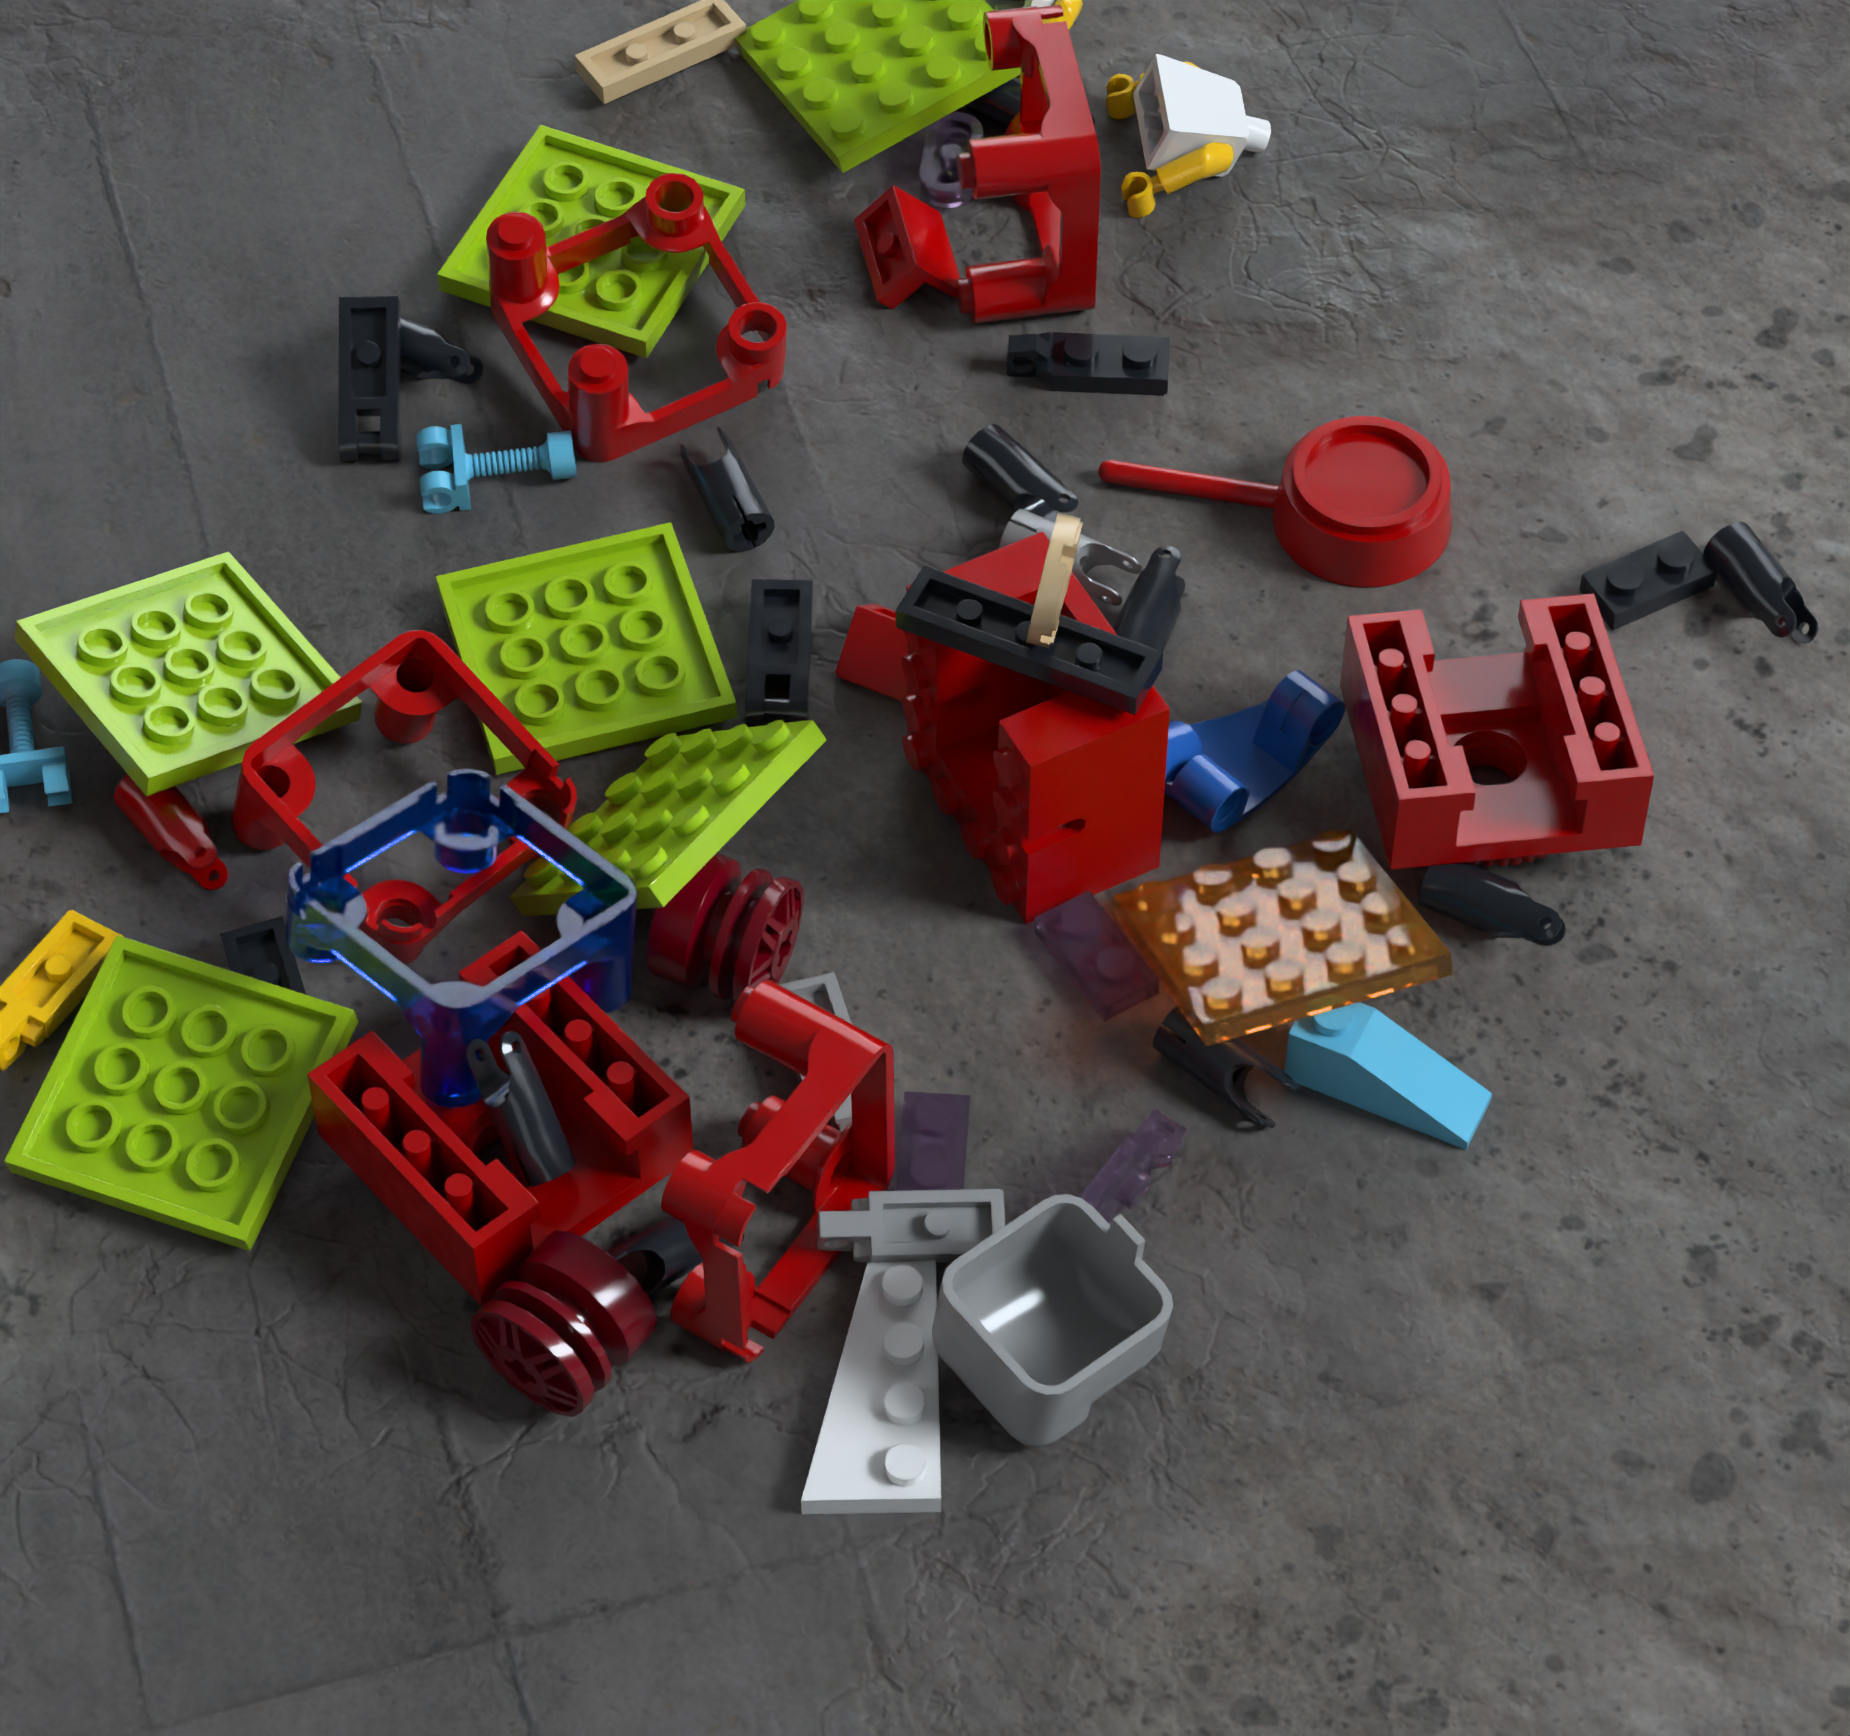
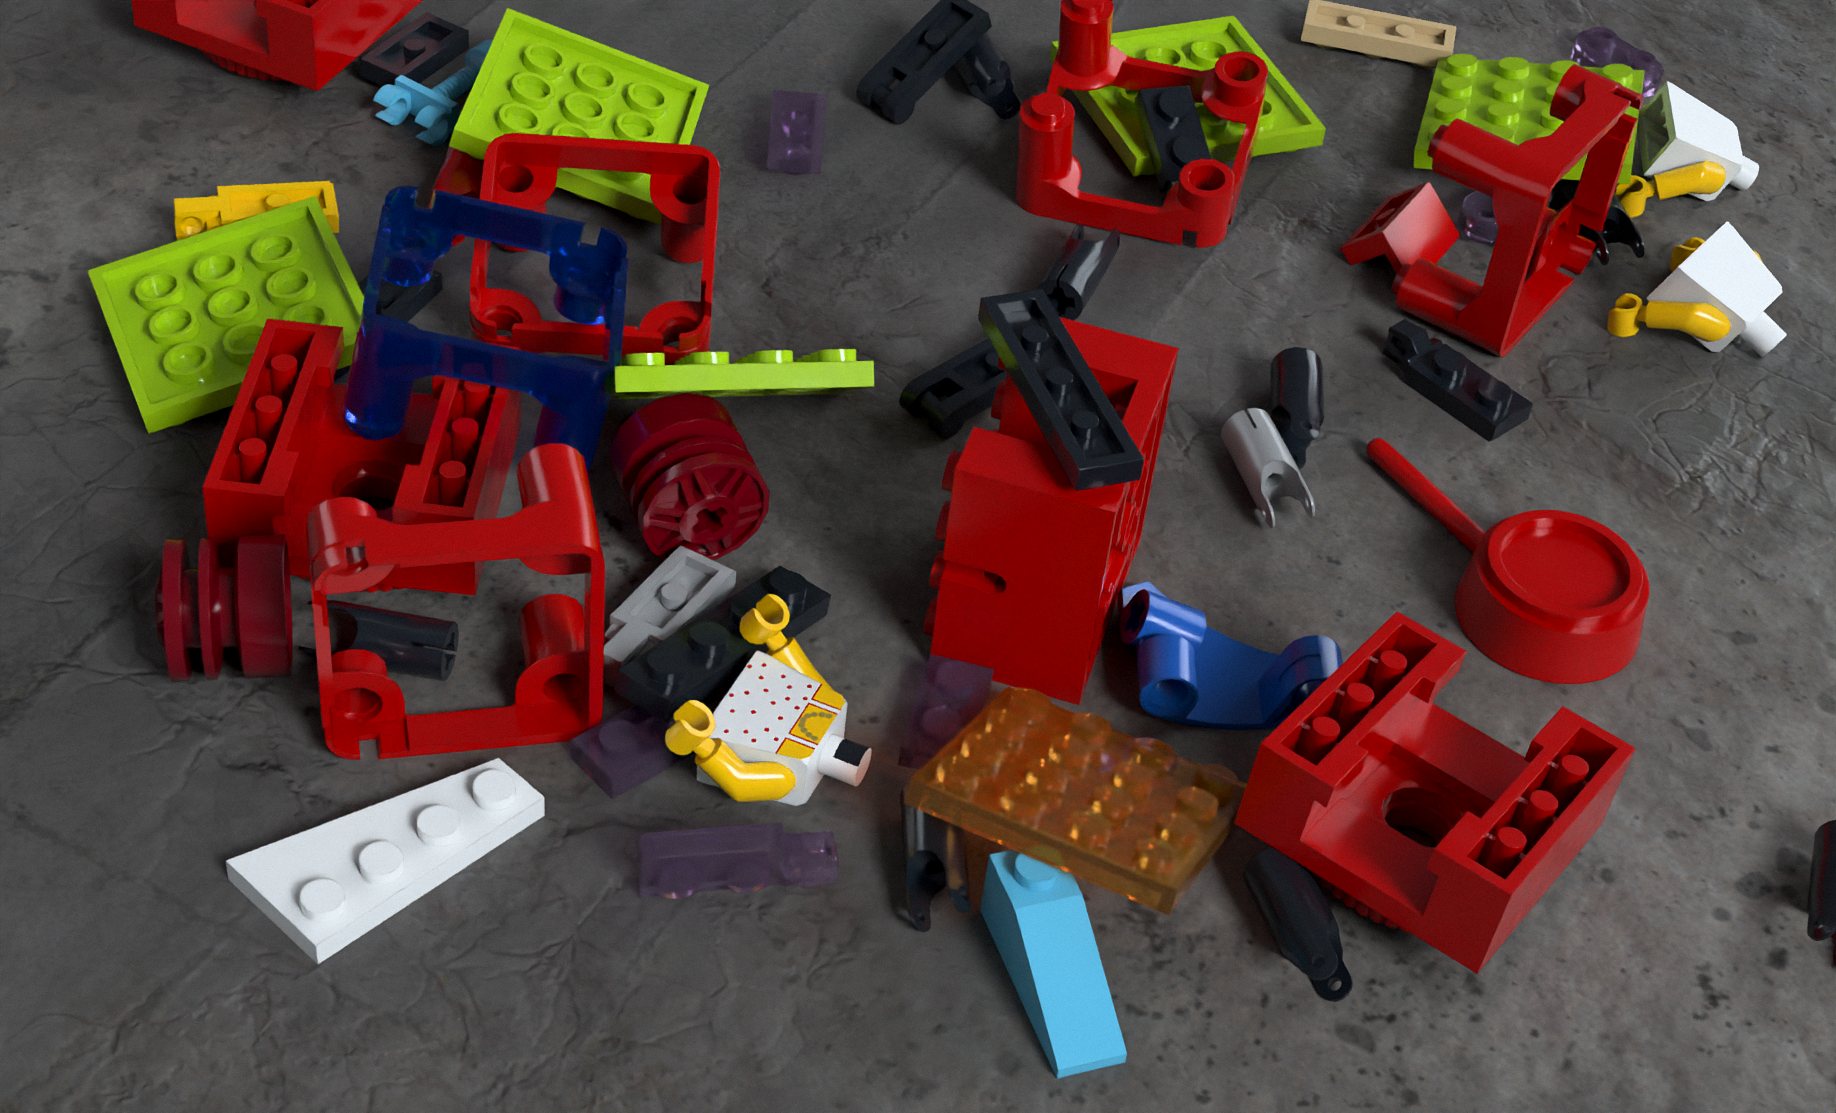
camera: 40 degrees right, 10 degrees down
(351, 538) = (796, 132): none -> clear purple plate
(441, 447) = (992, 179): medium azure bar -> none
(521, 1111) = (363, 438): black piece -> none
(590, 643) = (856, 279): lime plate -> none
(665, 302) = (1170, 131): none -> black hinge
(899, 1013) = (712, 648): none -> black plate
(913, 1224) = (561, 765): light grey hinge -> none
(1016, 1062) = (774, 725): none -> torso
(1050, 1316) = (532, 879): light grey piece -> none
(1054, 580) = (1094, 330): tan tile -> none
(1153, 601) = (1279, 544): black piece -> none
(1649, 579) = (1743, 821): black plate -> none

